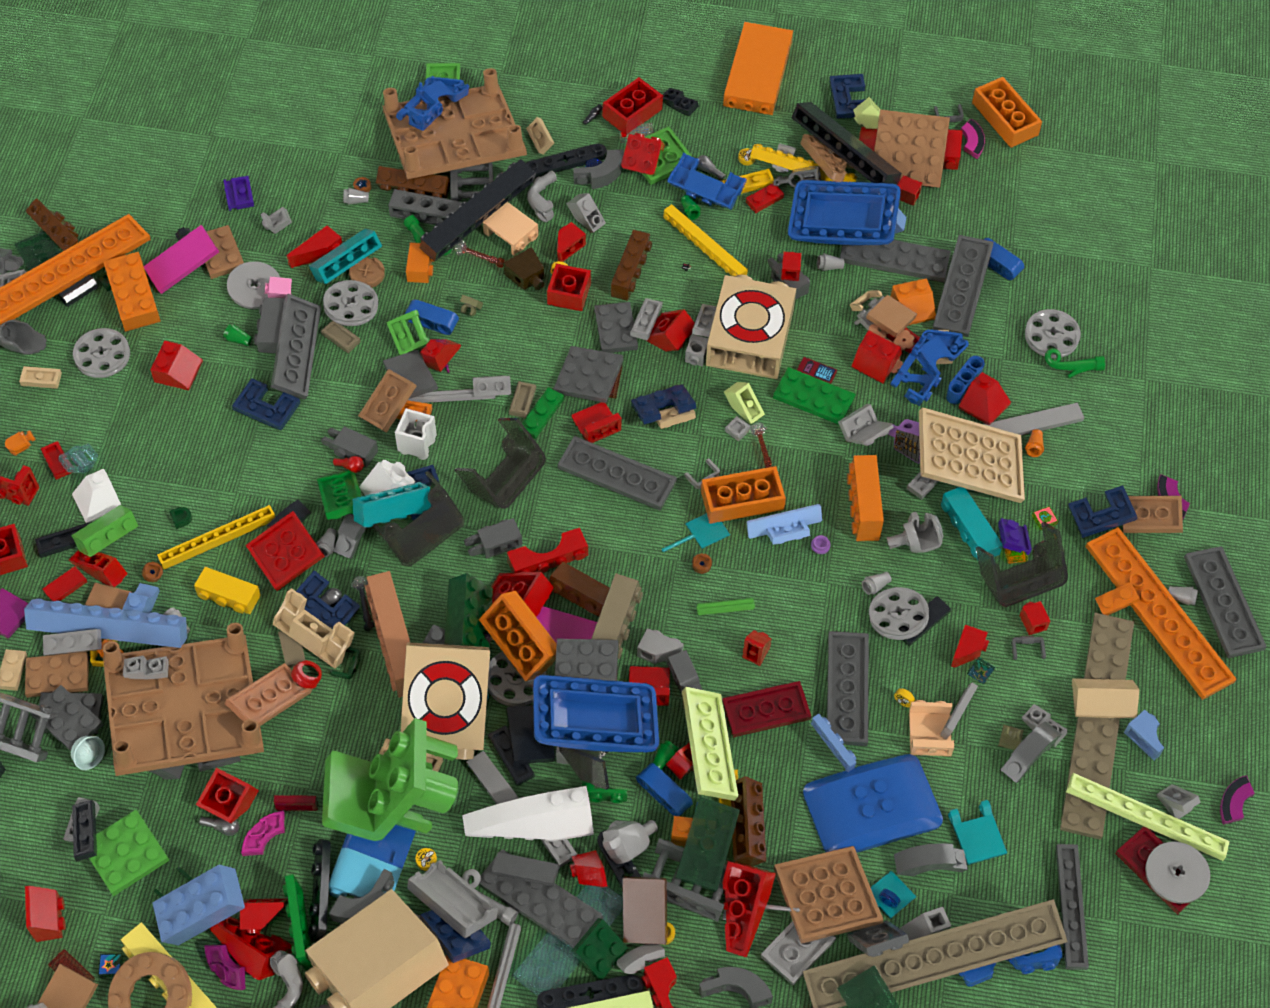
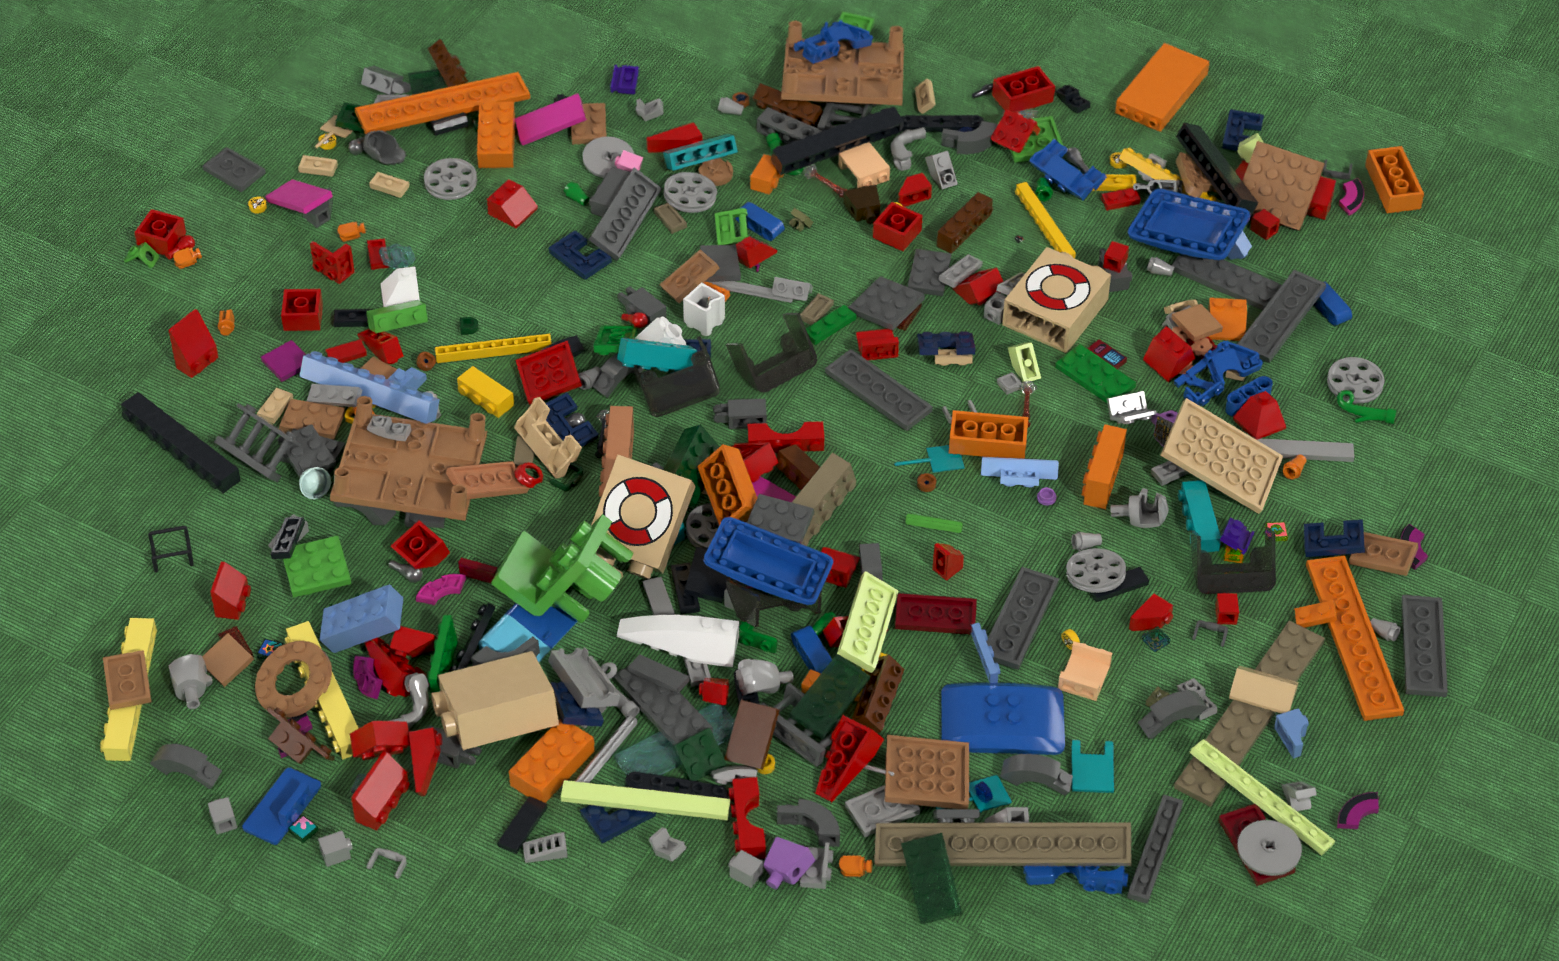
camera: 20 degrees right, 10 degrees down
(425, 858) = (573, 643): tile -> none
(657, 647) = (852, 534): light grey slope -> none
(958, 710) = (1118, 662): light grey tile -> none

